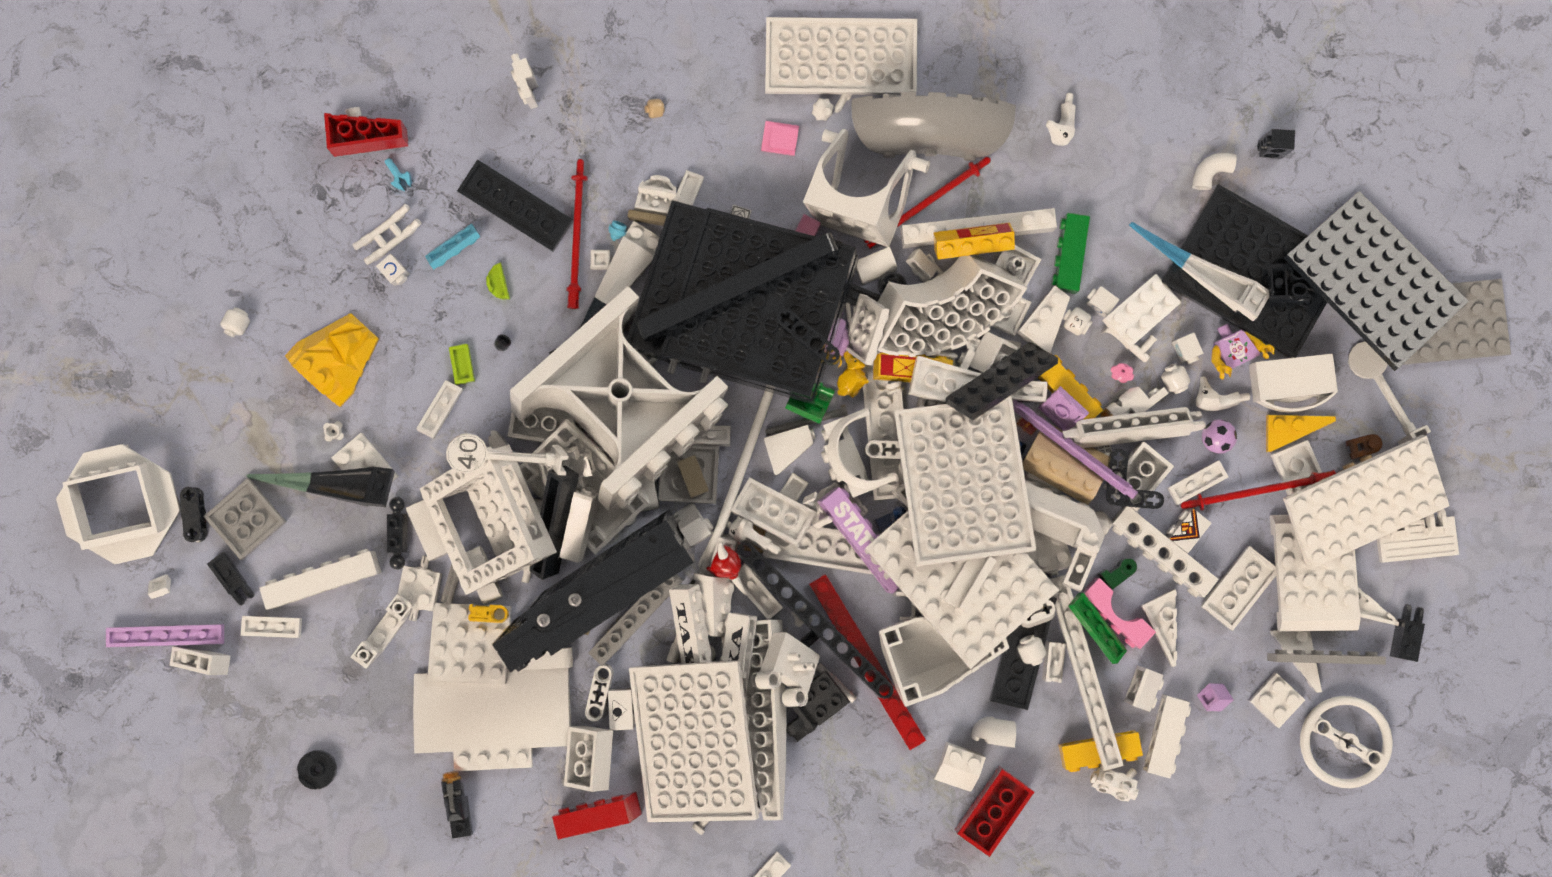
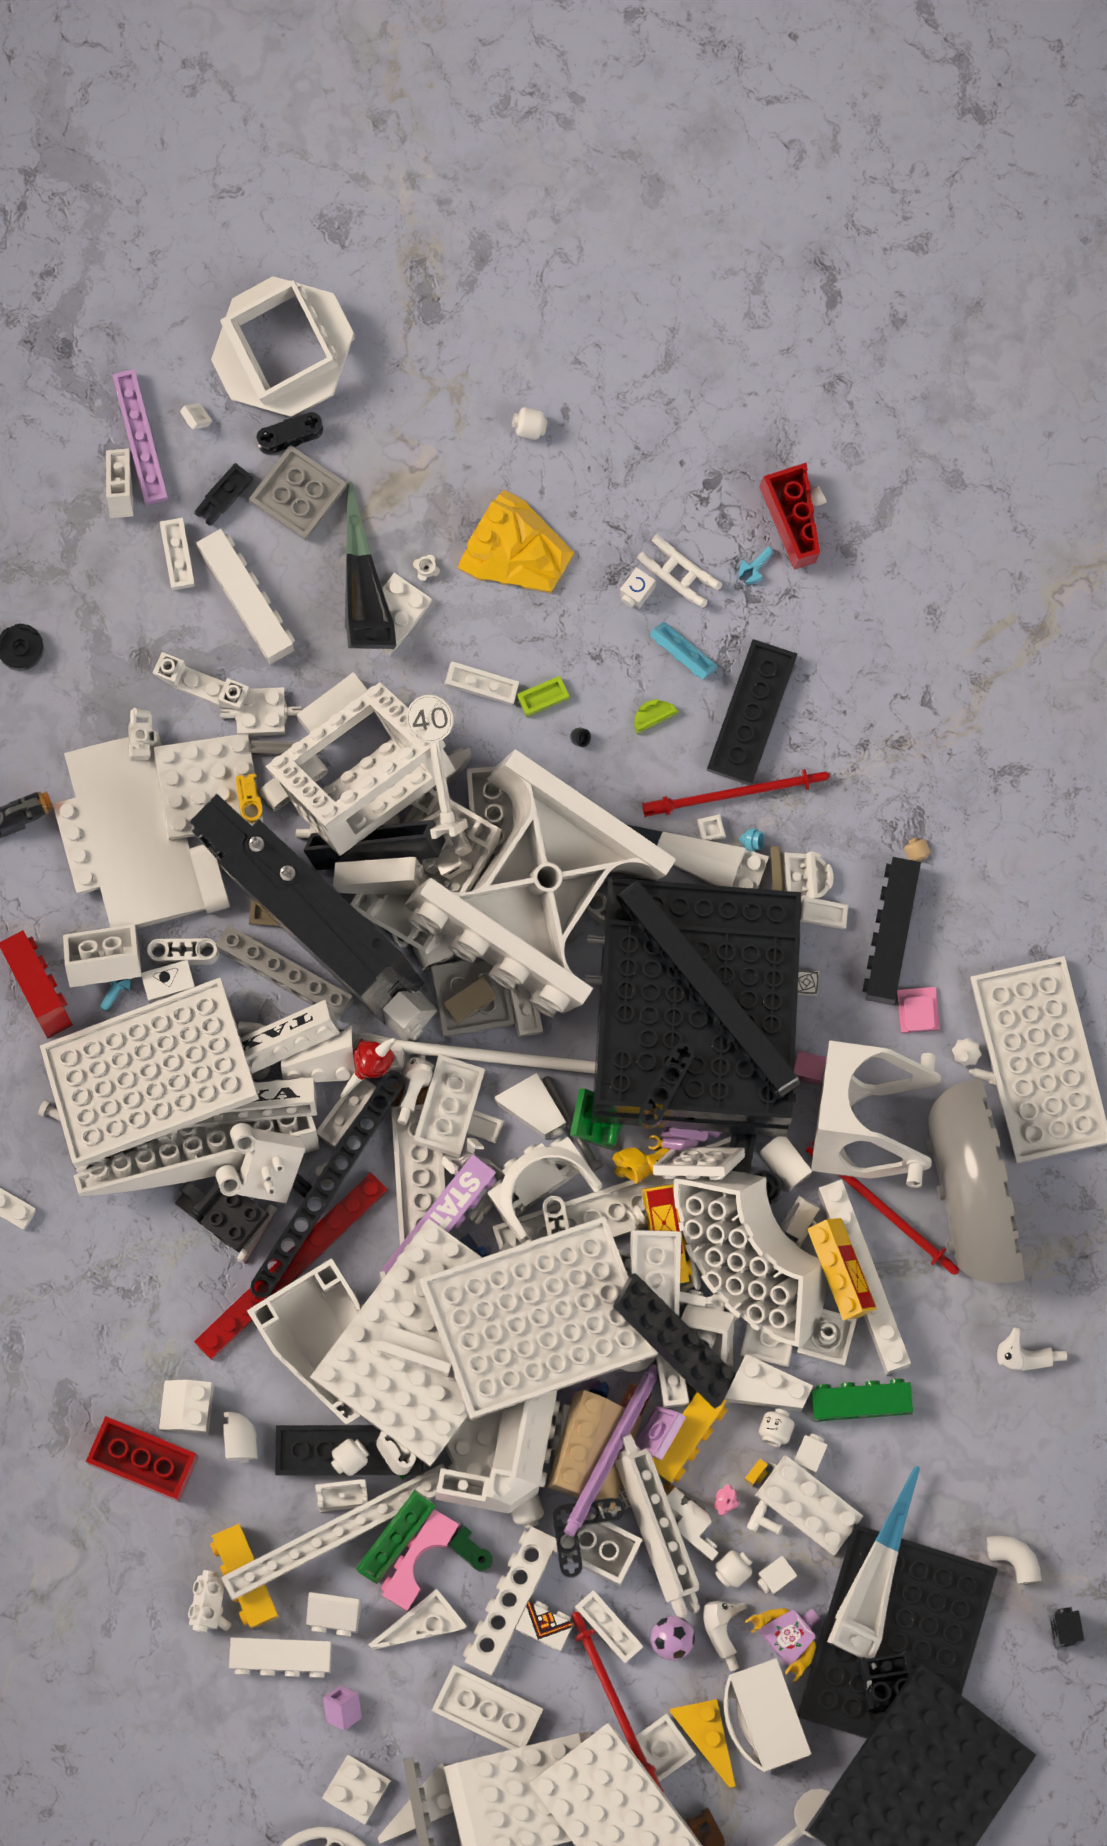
camera: 75 degrees right, 10 degrees down
(396, 533) = (321, 670): black plate -> none
(414, 689) = (140, 735): none -> white piece
(525, 79) = (910, 685): white plate -> none
(619, 755) = (113, 991): none -> medium azure bar
(715, 141) = (893, 930): none -> black brick
(1108, 344) = (757, 1473): none -> yellow plate

